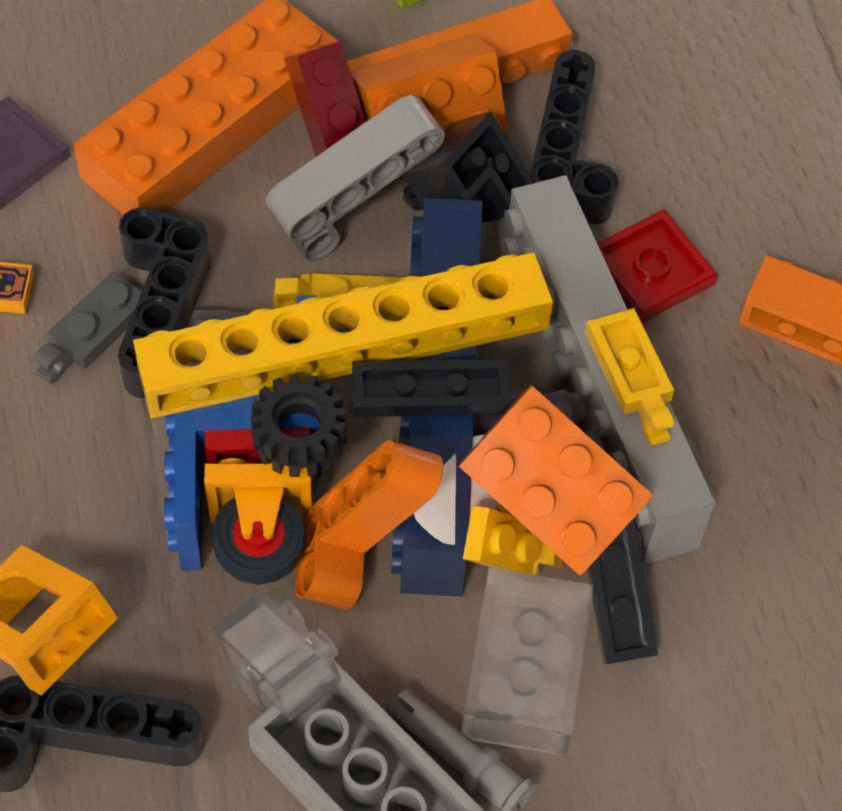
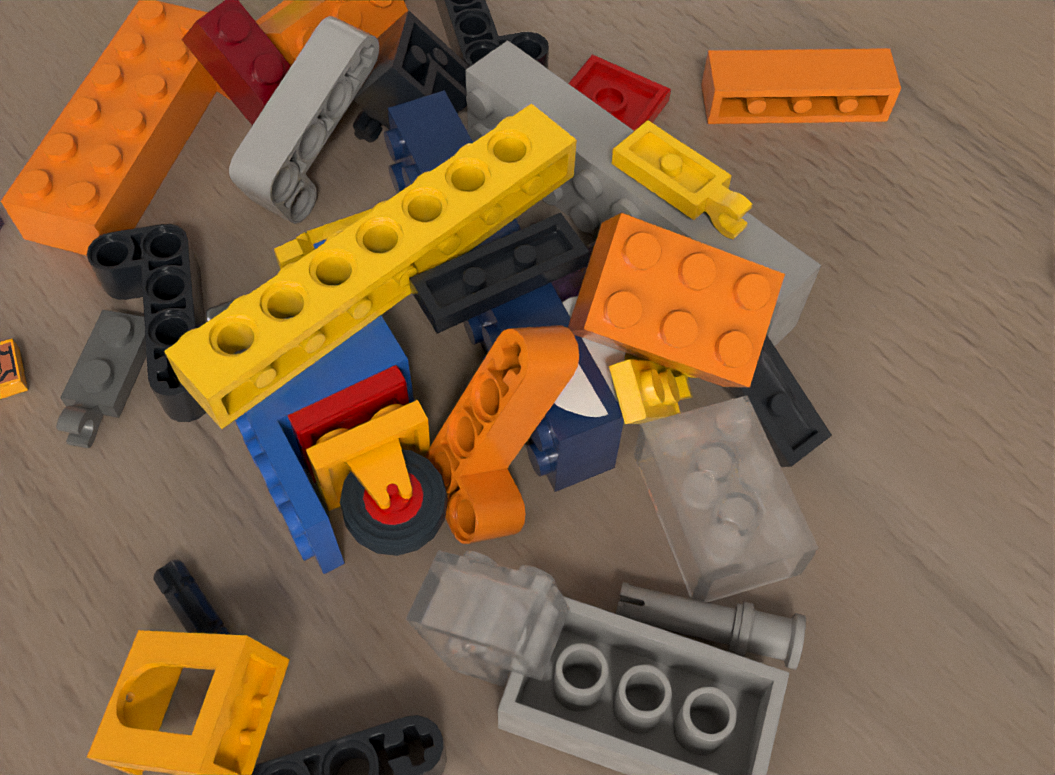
camera: 25 degrees left, 0 degrees up
(68, 538) = (188, 599): none -> black axle
(295, 399) = (382, 336): black tyre -> none

